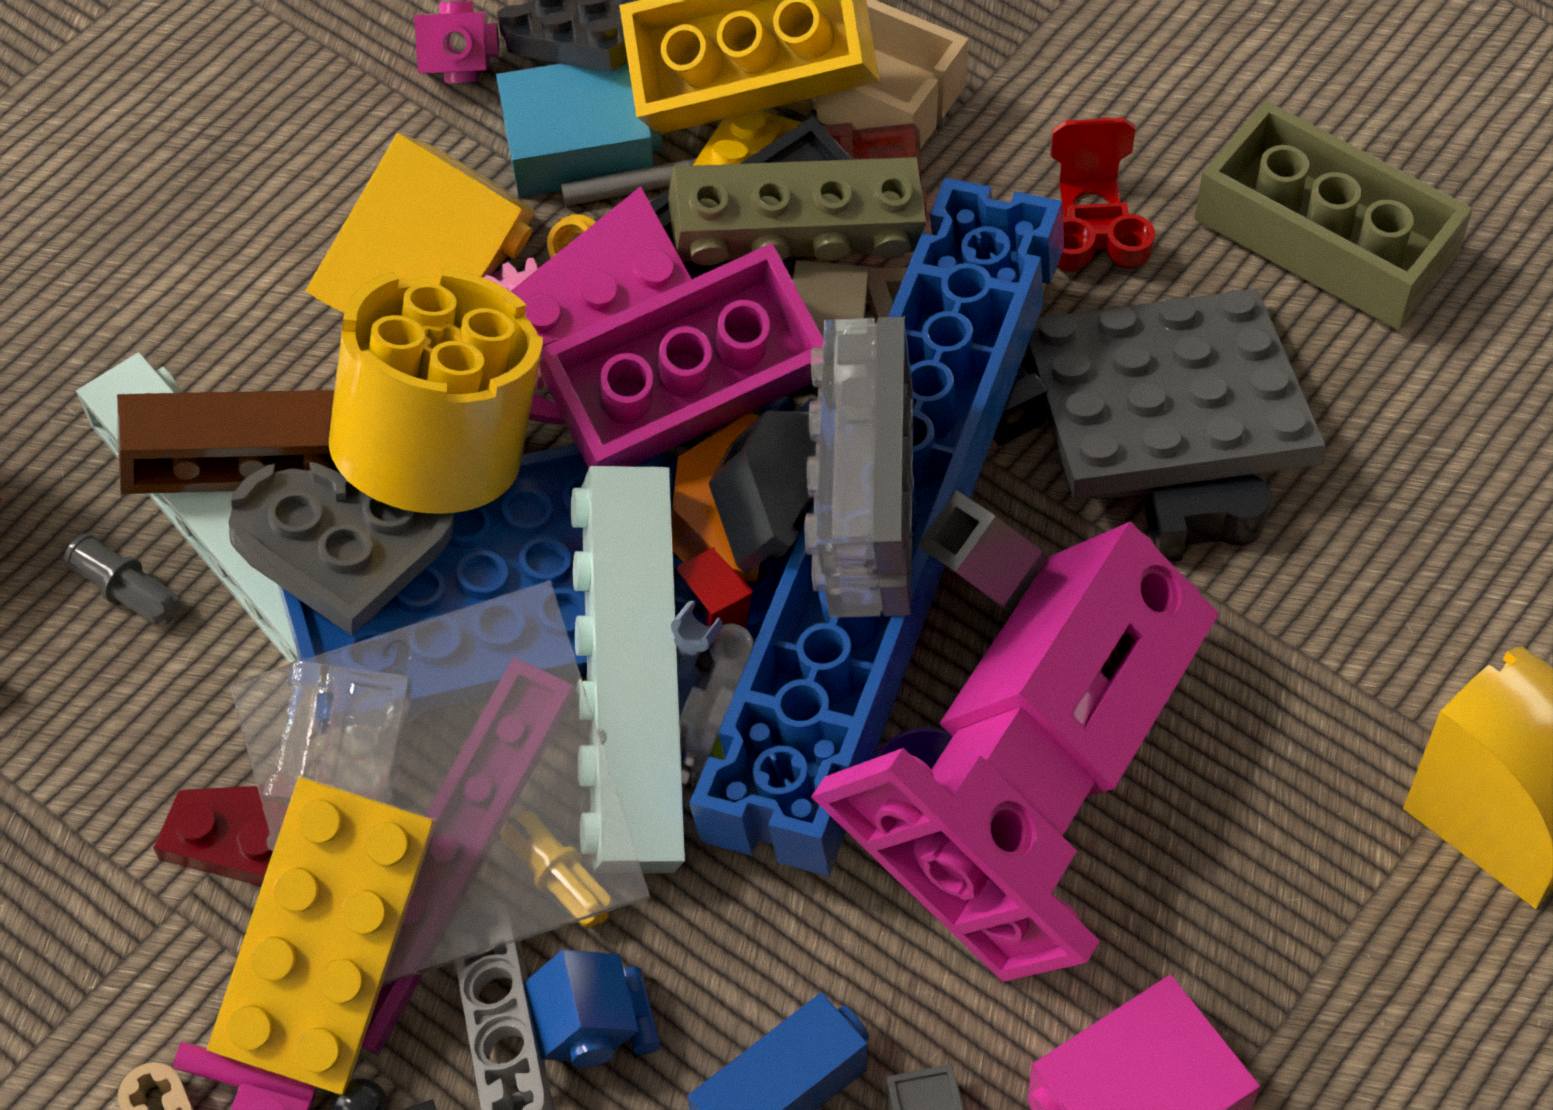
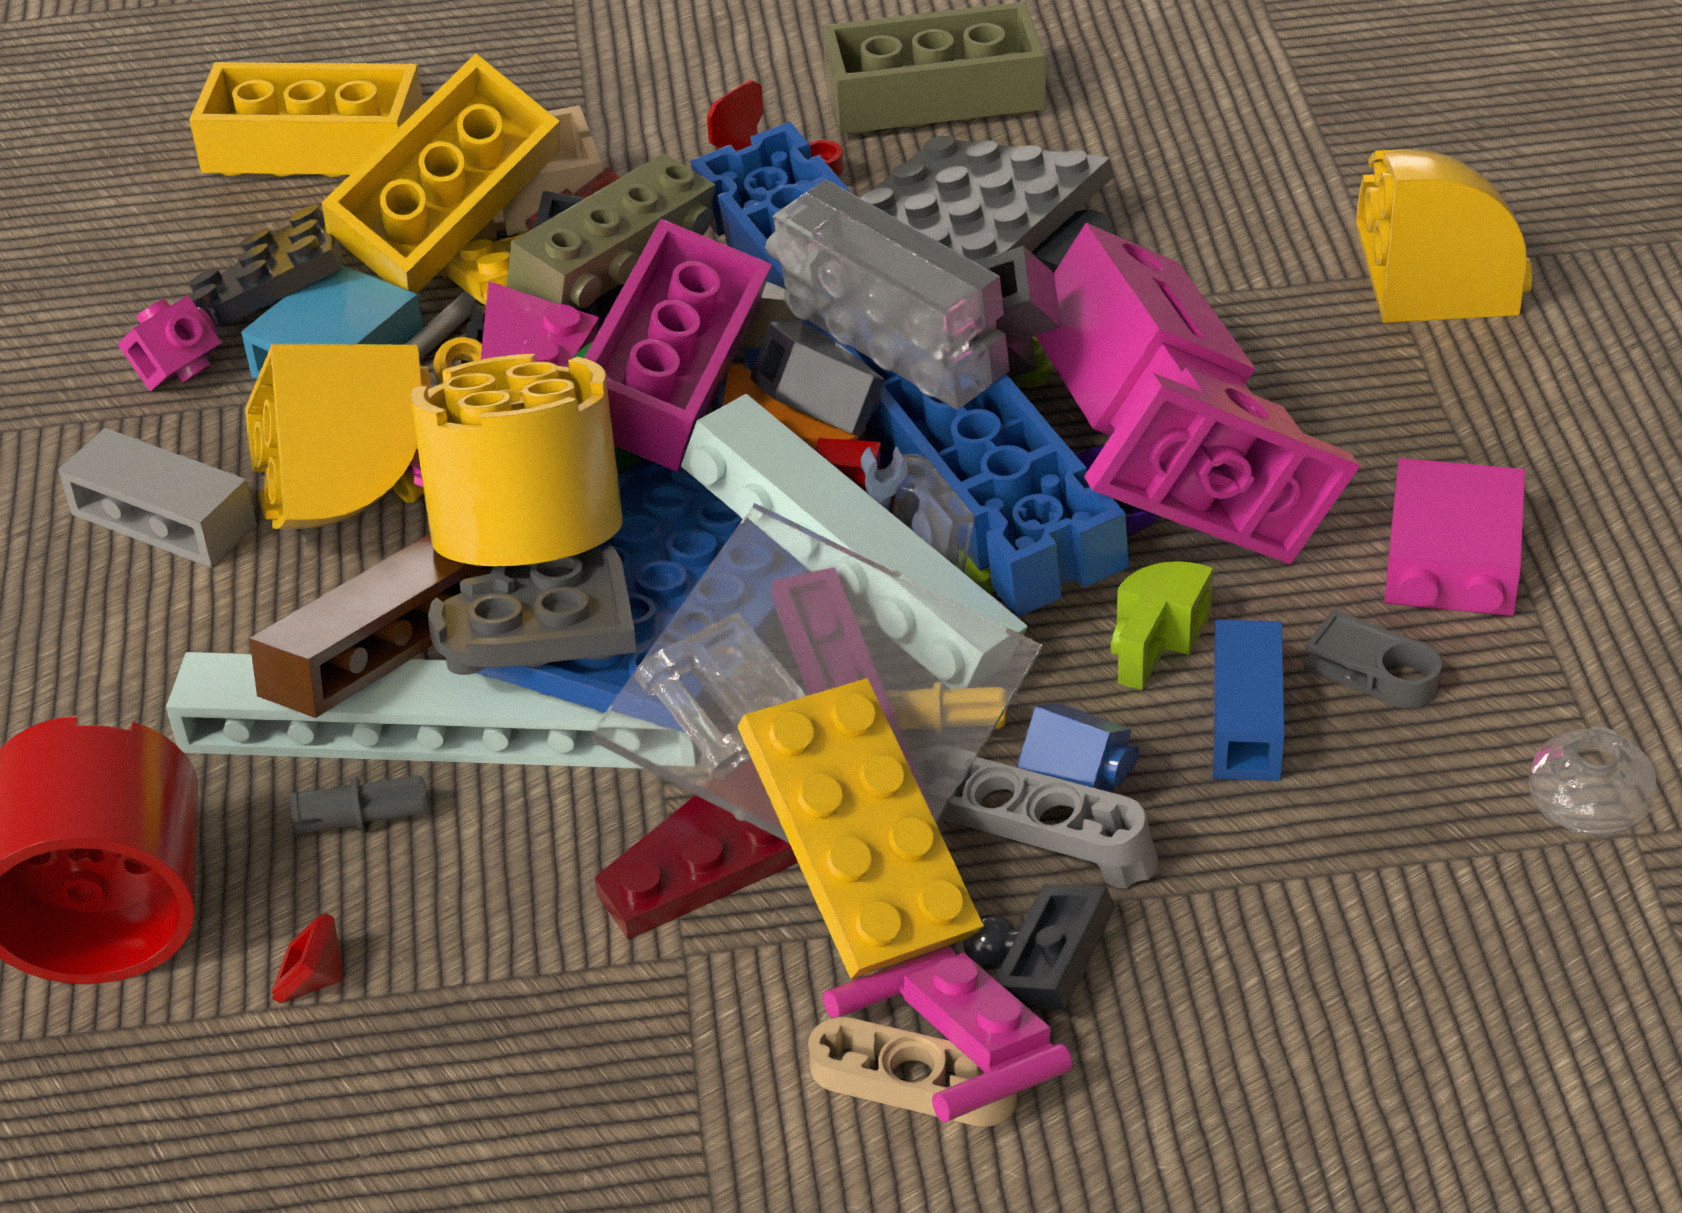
camera: 45 degrees left, 15 degrees down
(299, 179) = (158, 497): none -> light grey brick
(823, 932) = (1159, 611): none -> lime brick

